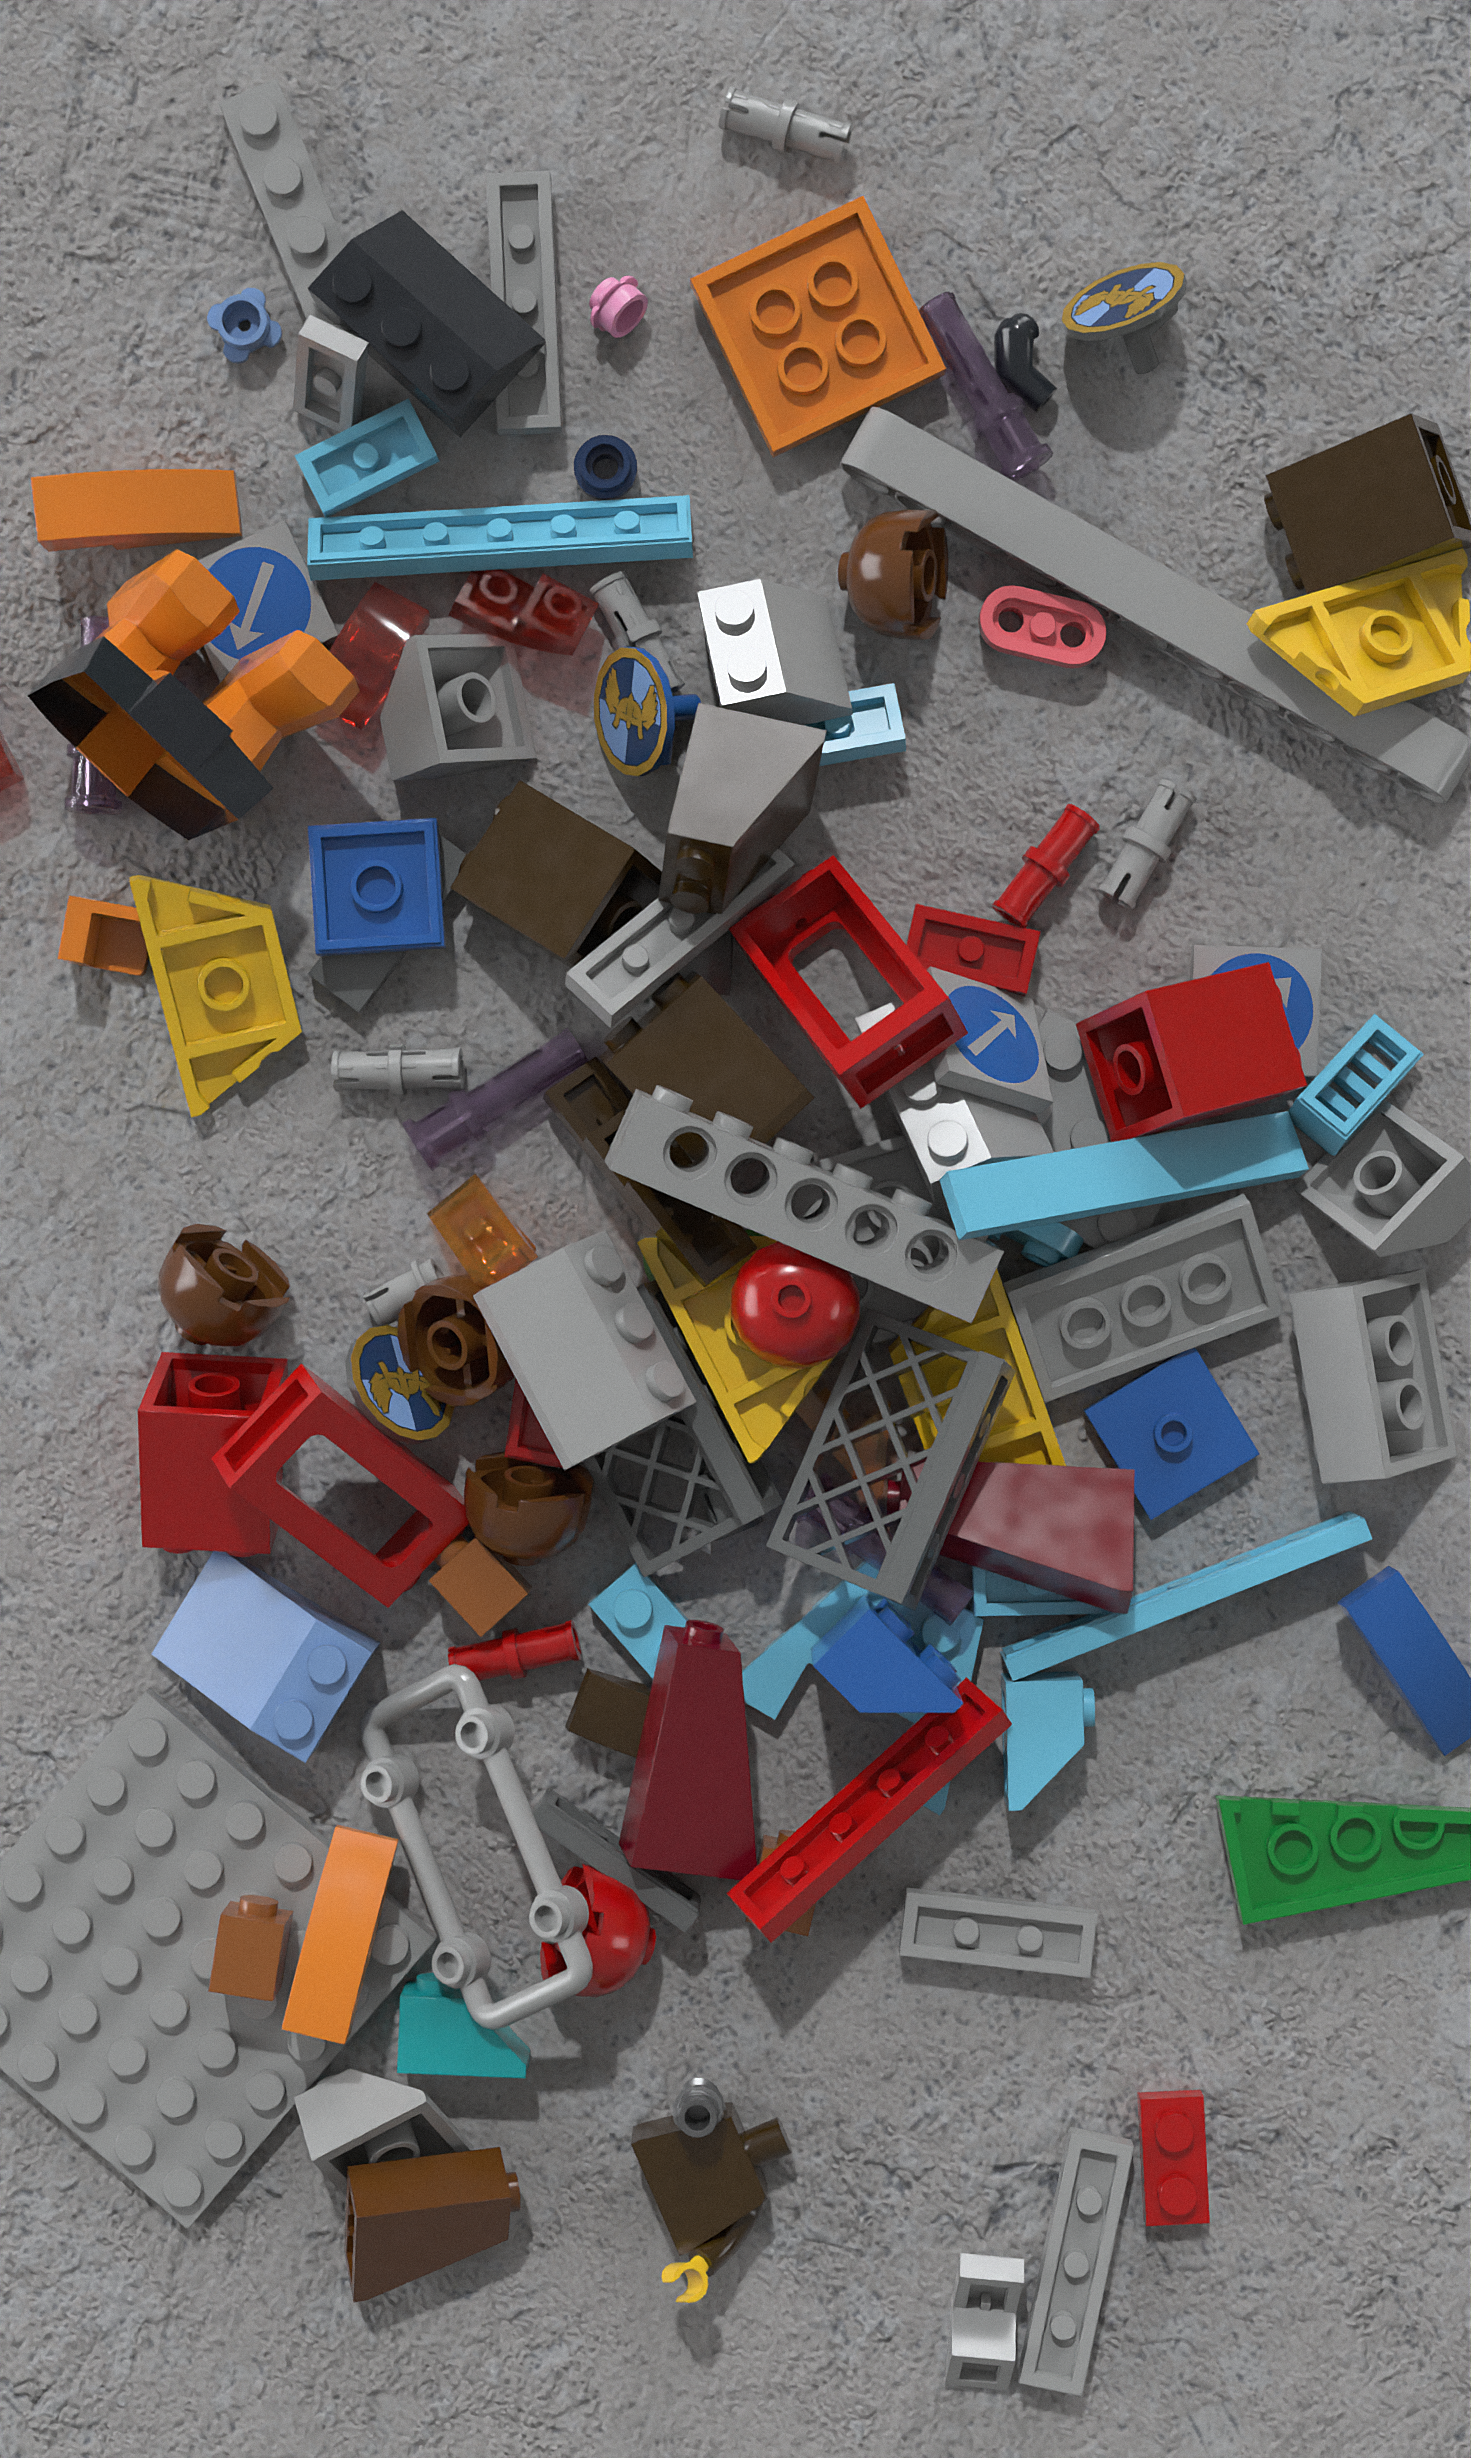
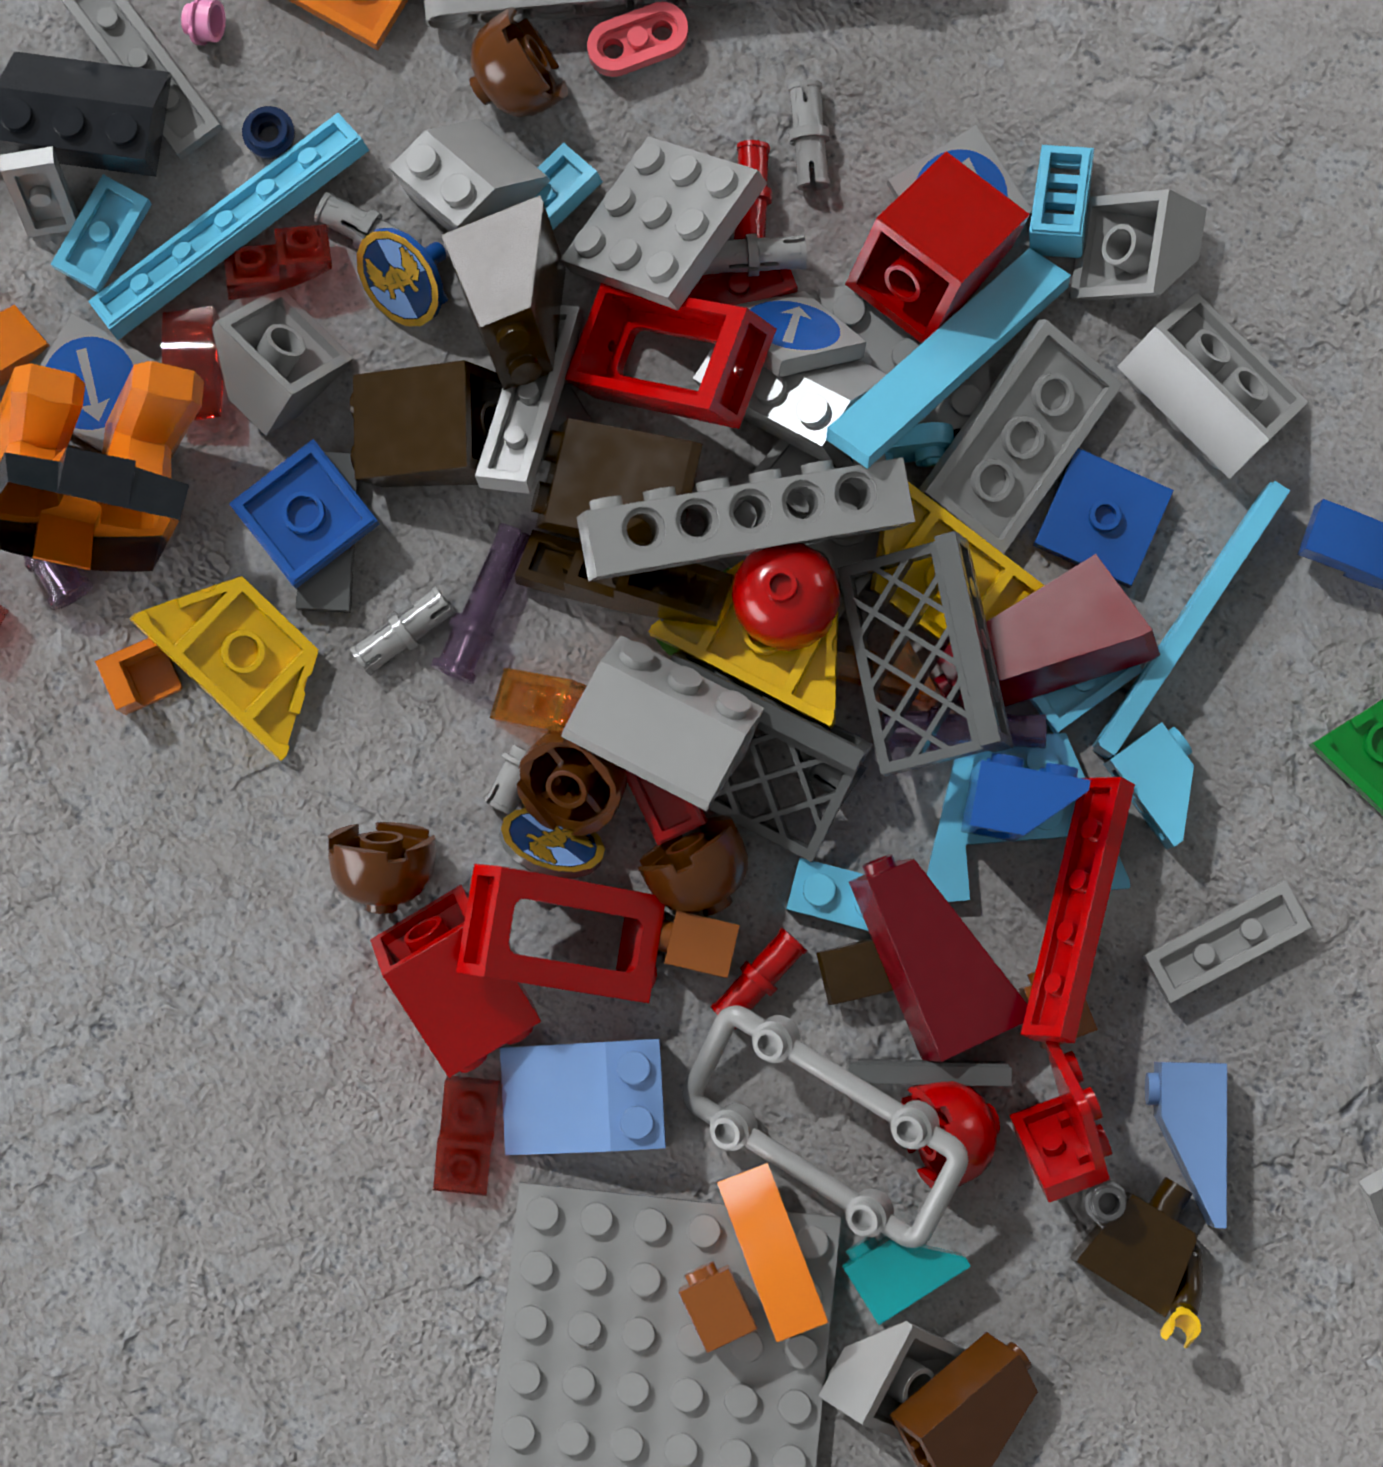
camera: 30 degrees left, 5 degrees down
(126, 1610) = (466, 1135): none -> clear red slope
(703, 2015) = (1062, 1132): none -> red bracket
(846, 2076) = (1193, 1120): none -> medium blue slope
(935, 839) = (663, 222): none -> light grey plate
(1001, 932) = (760, 254): none -> light grey pin

